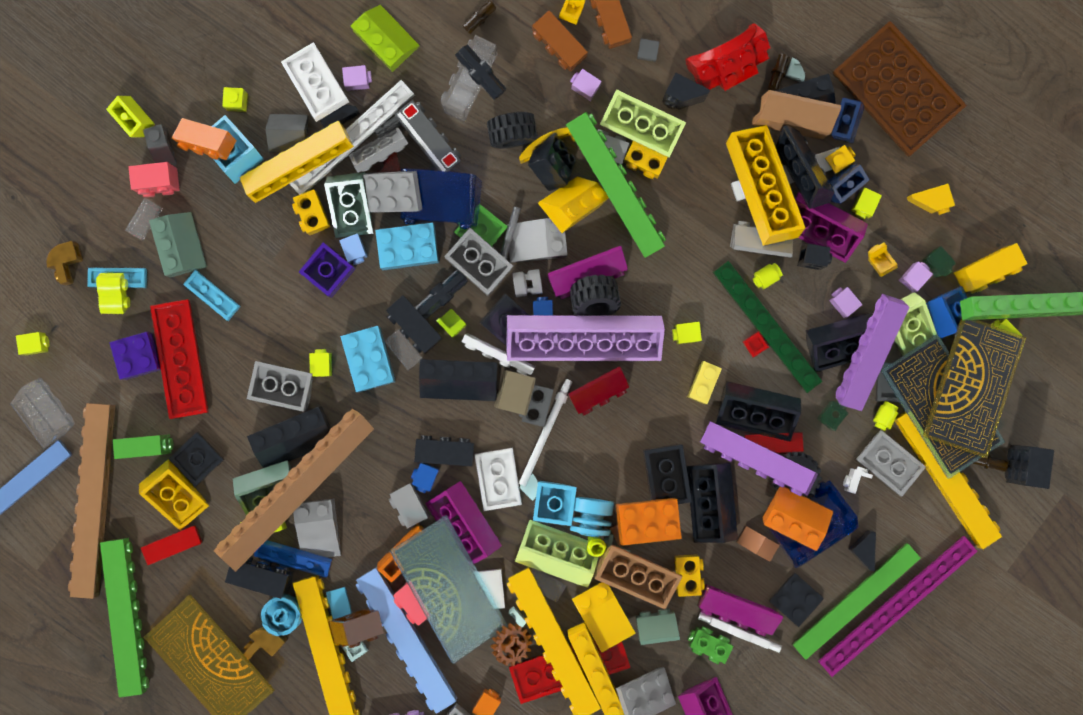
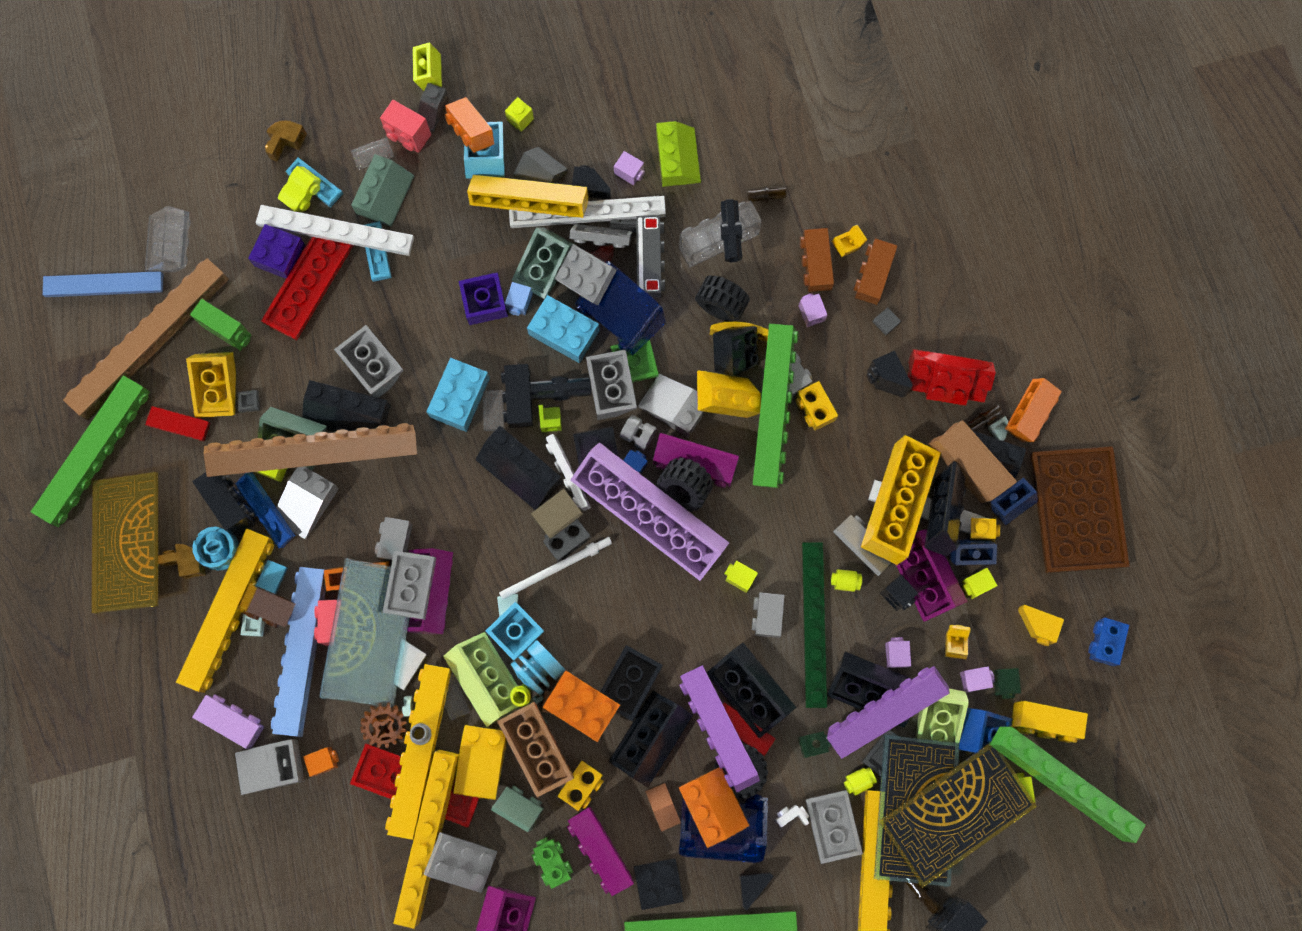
camera: 40 degrees right, 10 degrees down
(32, 343) = (205, 182): neon yellow brick -> none
(167, 304) = (336, 230): none -> white plate
(196, 459) = (255, 369): black plate -> none
(210, 486) = (248, 401): none -> dark grey tile
(315, 82) = (593, 146): white tile -> none
(315, 210) = (511, 245): yellow brick -> none
(321, 363) = (417, 369): neon yellow brick -> none
(424, 477) = (425, 527): blue brick -> none
(444, 451) = (459, 518): black brick -> none
(451, 531) = (409, 585): none -> light grey plate
(498, 479) = (485, 577): white tile -> none
(510, 232) = (656, 381): flat silver bar -> none
(546, 624) = (427, 736): none -> light grey piece
(599, 391) = (627, 566): dark red slope -> none
(642, 123) = (836, 374): yellowish green slope -> none
(704, 382) = (723, 629): light yellow brick -> none
(729, 346) = (769, 615): none -> light grey brick
(743, 634) = (586, 873): white piece -> none
(755, 344) = (792, 631): red tile -> none
(811, 37) = (1033, 410): none -> orange brick
(991, 174) = (1108, 641): none -> blue brick

